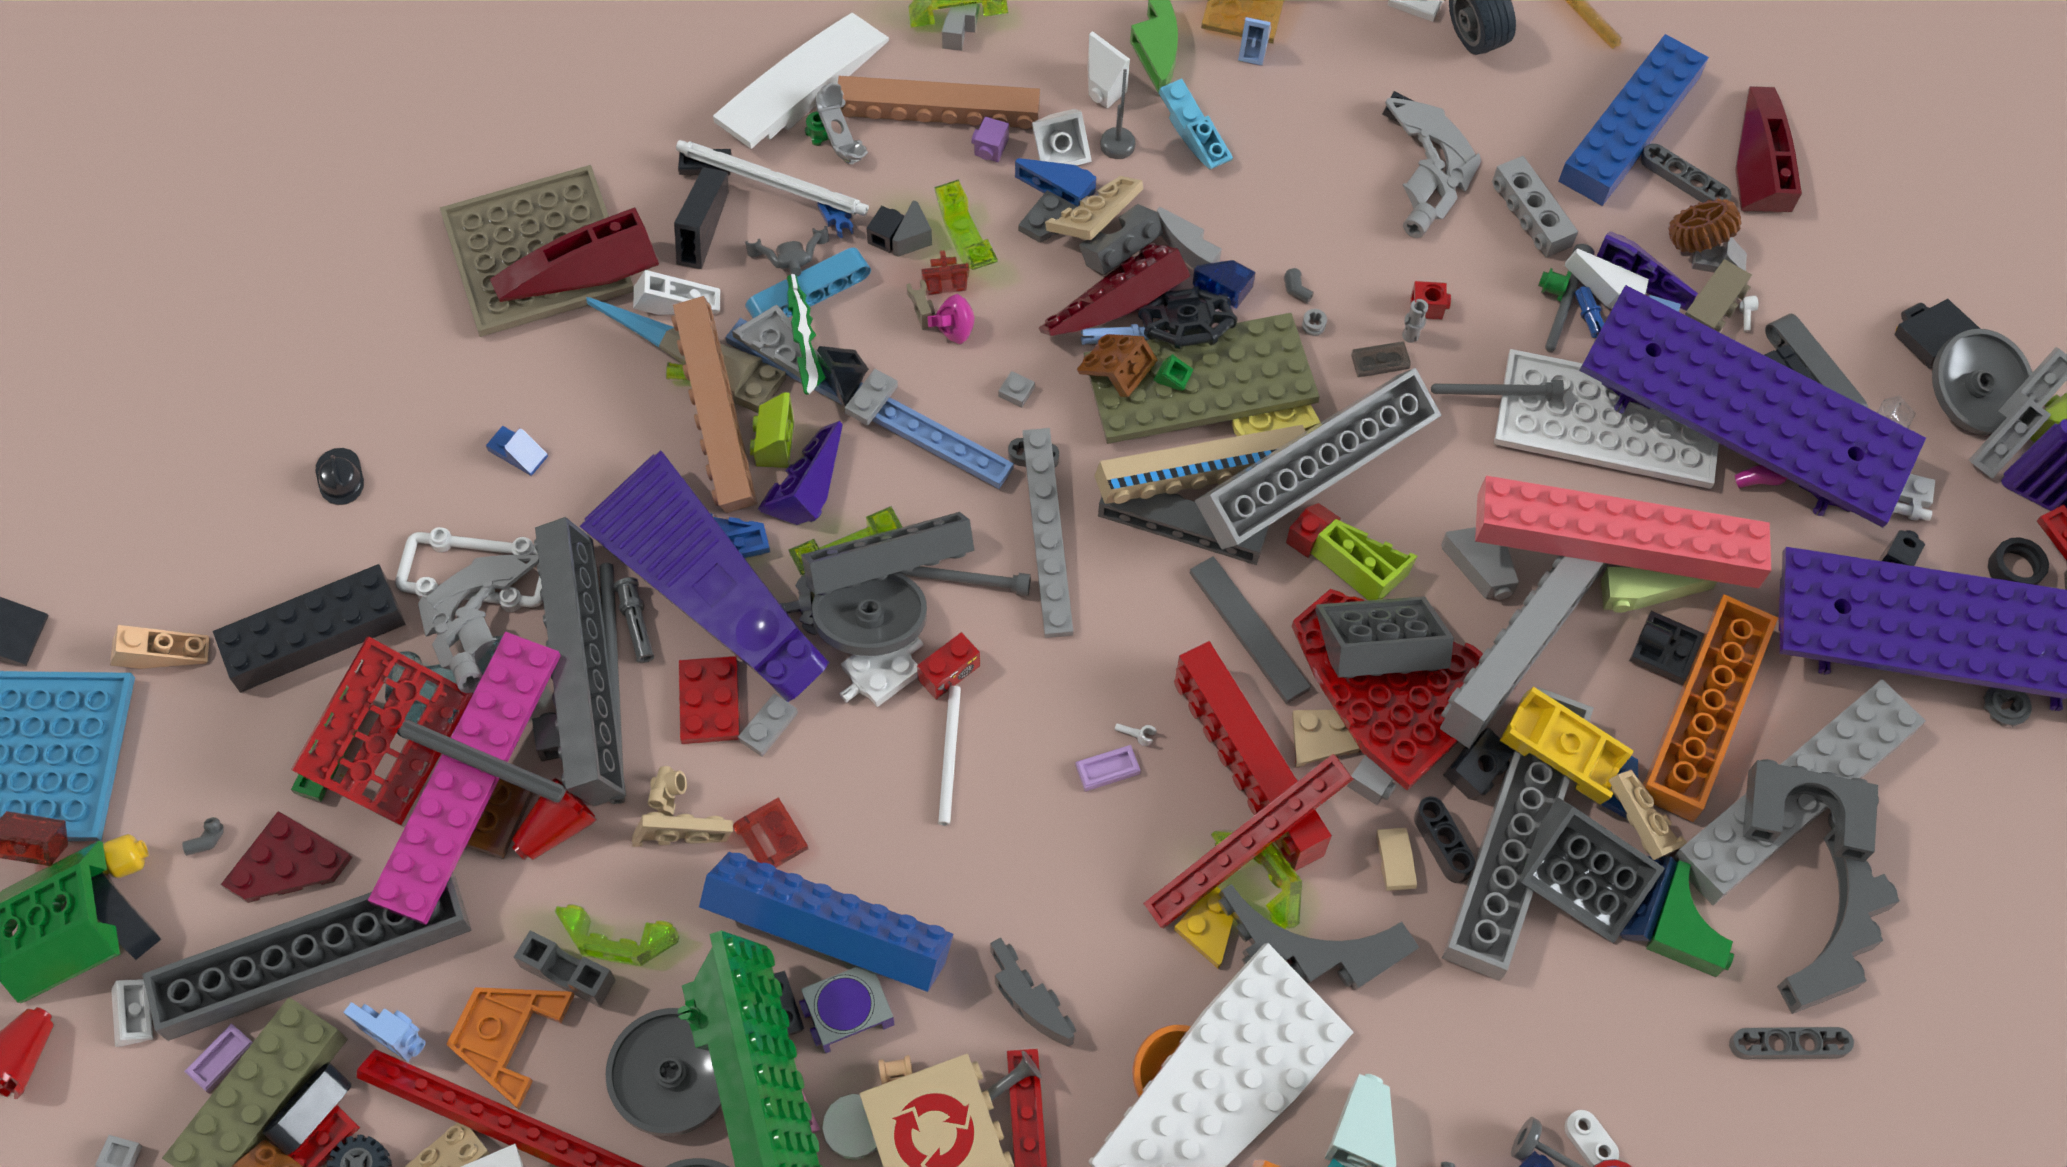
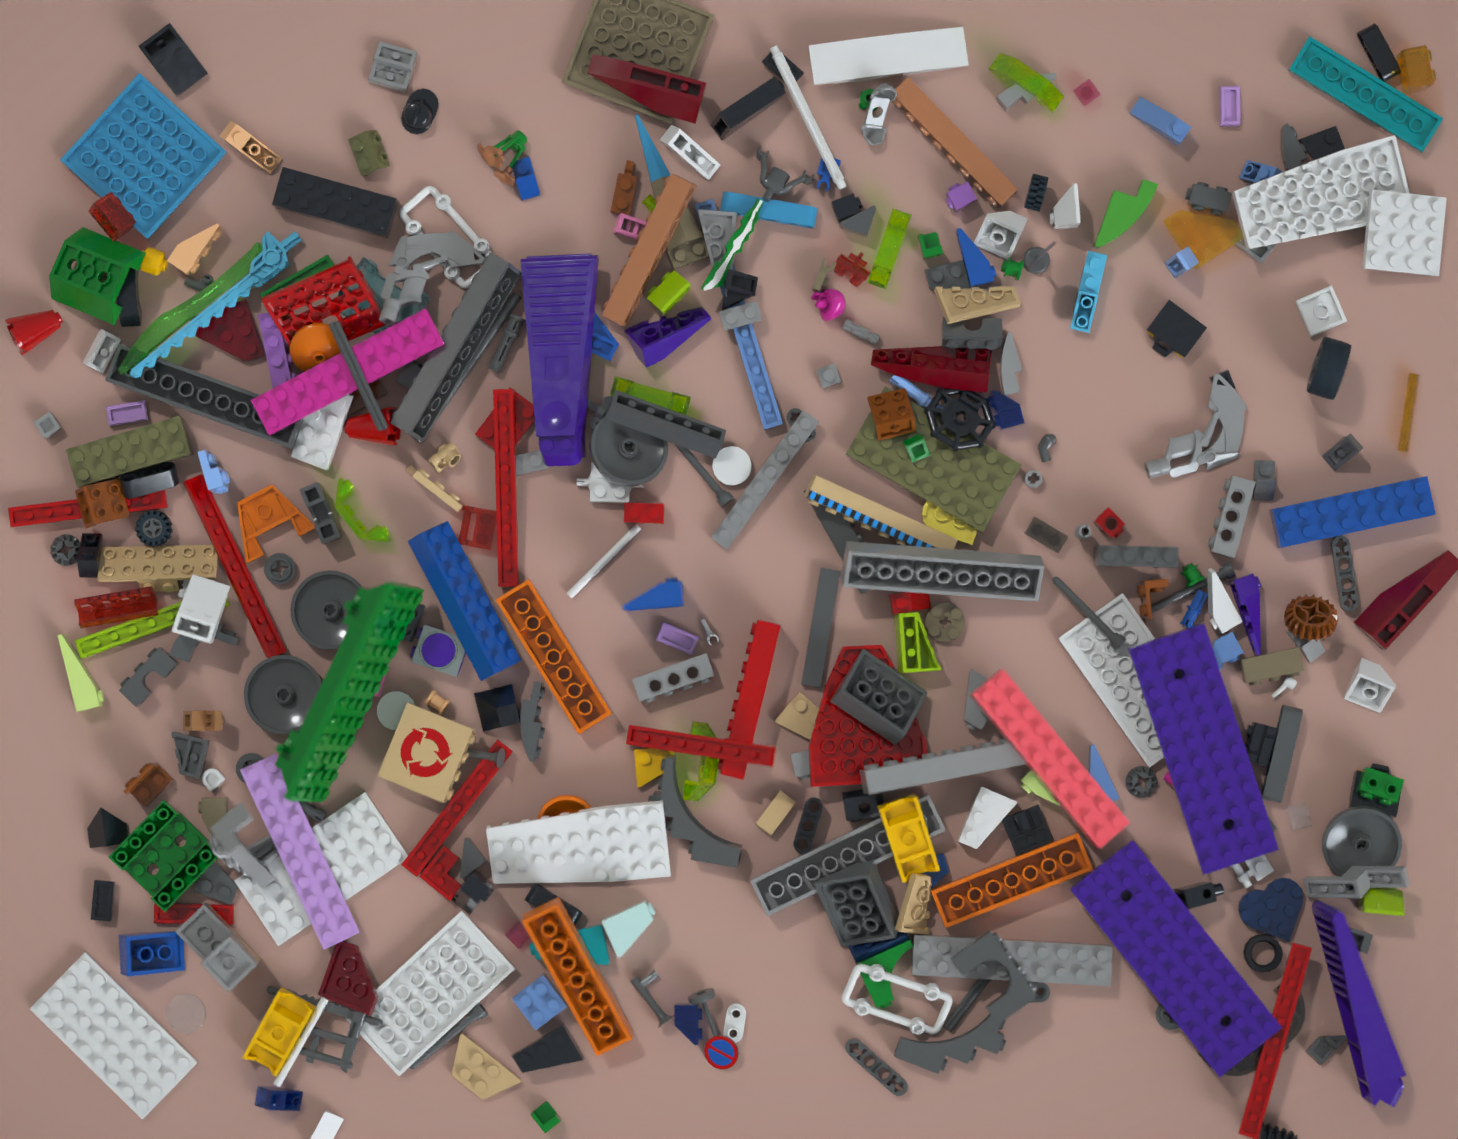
camera: 45 degrees right, 25 degrees up
(165, 812) = (190, 251): none -> light nougat slope
(204, 897) = (266, 262): none -> piece
(271, 455) = (392, 67): none -> light grey slope
(309, 552) = (369, 152): none -> olive bracket
(353, 827) = (276, 351): none -> medium lavender brick
(393, 781) = (310, 342): none -> orange dish
(459, 432) = (494, 157): none -> plant
(491, 879) = (321, 433): none -> white plate
(565, 1066) = (272, 563): none -> dark grey gear
(638, 382) = (624, 190): none -> dark orange plate
(672, 418) = (618, 225): none -> bright pink slope
(768, 763) = (506, 487): none -> red plate
(975, 1017) = (497, 707): none -> black slope
(988, 897) = (553, 656): none -> orange brick
(999, 548) = (732, 466): none -> white tile
(1002, 204) = (930, 245): none -> green panel
(1010, 325) = (861, 332): none -> light grey axle
(1052, 721) = (661, 596): none -> blue slope
(1060, 80) = (1036, 192): none -> black wheel
(1103, 160) = (1012, 268): none -> green brick
(1159, 768) = (642, 683): none -> light grey brick
(1309, 97) = (1175, 329): none -> black piece
(1375, 506) = (936, 629): none -> dark tan plate
(1506, 283) = (1136, 556): none -> dark grey arch
(1533, 153) = (1264, 479): none -> flat silver slope
(1539, 329) = (1143, 591): none -> dark orange bracket
(1568, 77) = (1342, 451): none -> flat silver slope
(1611, 668) = (984, 815): none -> white wedge
(1688, 925) = (916, 1024): none -> white bar
(1710, 499) = (1132, 779): none -> dark grey gear
(1804, 884) = (966, 1003): none -> dark grey axle
(1822, 245) = (1370, 686): none -> white slope
(1938, 312) = (1379, 786): none -> green brick
(1974, 517) = (1273, 908): none -> dark blue plate

